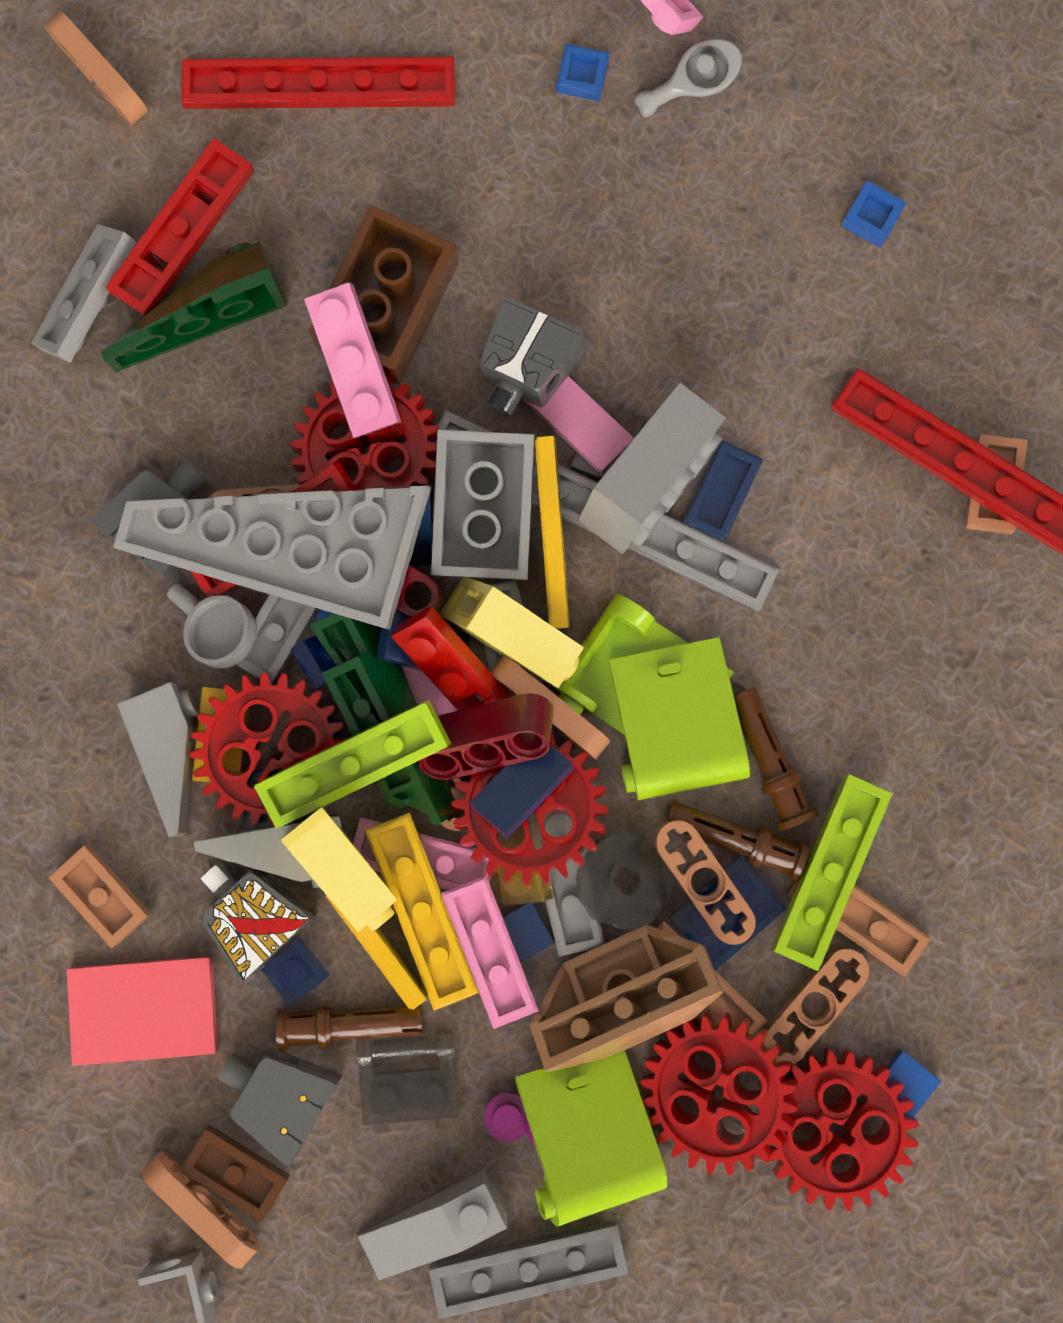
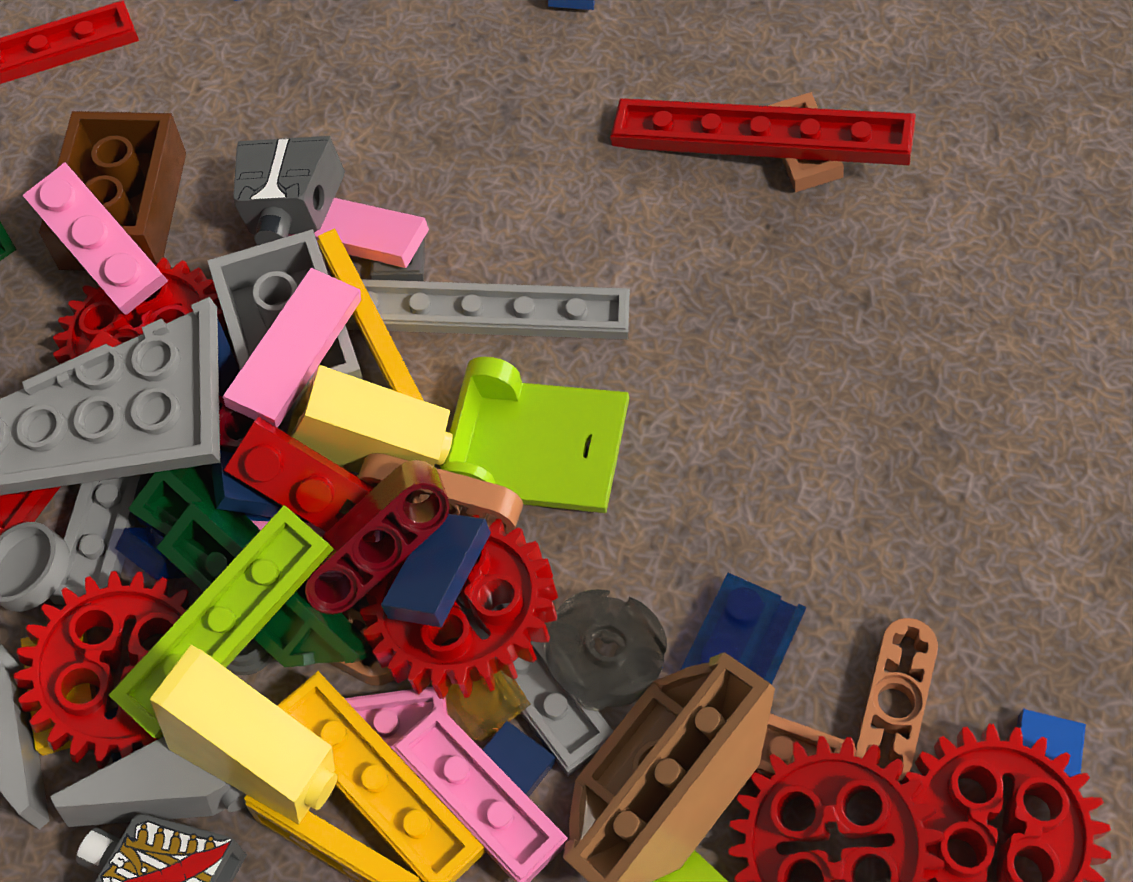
camera: 20 degrees left, 25 degrees down
(480, 548) = (292, 348): none -> bright pink tile
(653, 470) = (450, 229): light grey brick -> none
(681, 725) = (592, 462): lime door -> none
(722, 491) = (538, 243): dark blue tile -> none
(735, 903) = (743, 614): nougat beam -> none
(757, 845) = (740, 554): reddish brown pin -> none
(779, 779) = (730, 477): reddish brown pin -> none
(831, 871) = (834, 544): lime plate -> none
(879, 930) = (891, 587): nougat tile -> none

